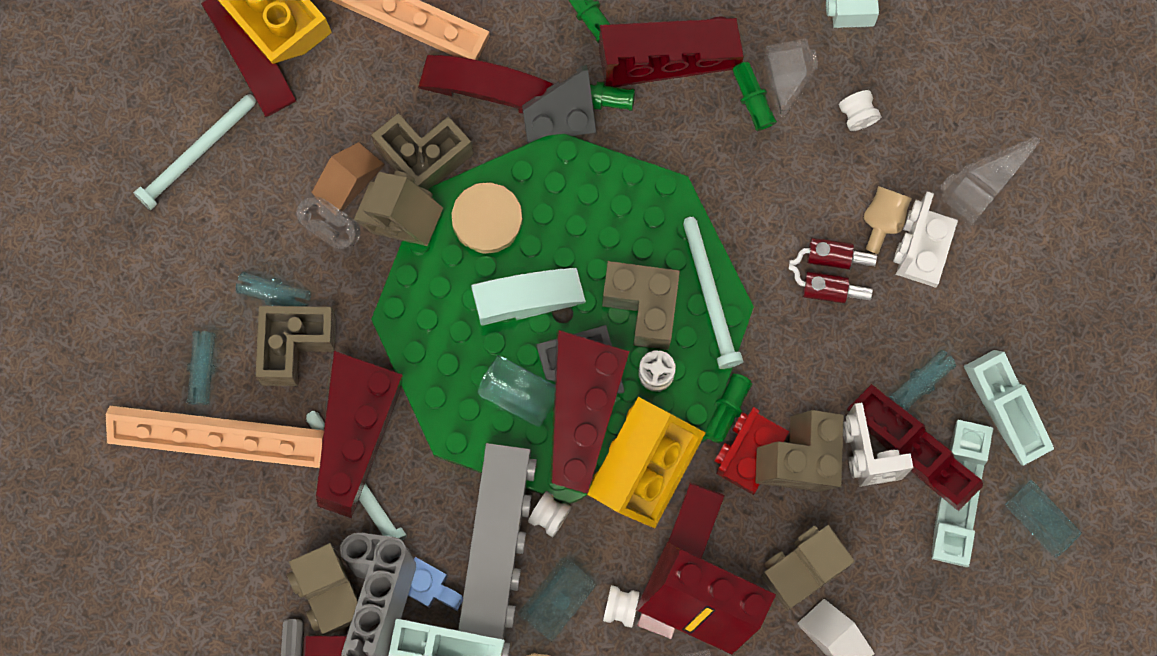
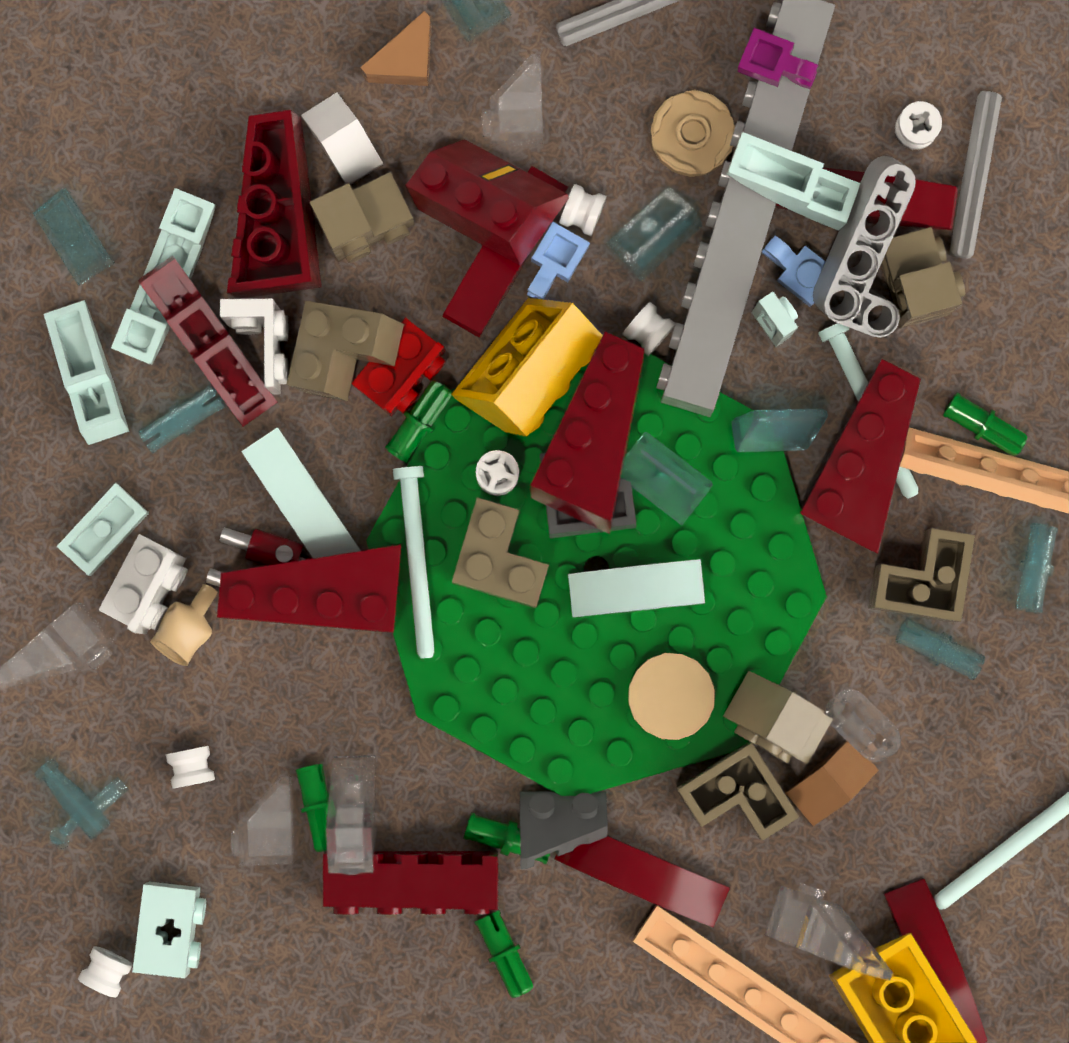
camera: 175 degrees left, 10 degrees up
(256, 479) = (985, 425): none -> green axle
(338, 53) = (823, 929): none -> clear slope
(431, 443) = (777, 429): none -> clear light blue slope
(443, 534) = (776, 317): none -> light aqua plate
(636, 564) = (558, 257): none -> light blue plate
(726, 87) = (351, 815): none -> clear slope
(785, 250) = (327, 591): none -> dark red wedge
(805, 320) = (298, 496): none -> light aqua slope
(877, 537) = (275, 219): none -> dark red wedge
(936, 66) = (83, 811): none -> clear light blue piece
(967, 283) = (103, 529): none -> light aqua plate

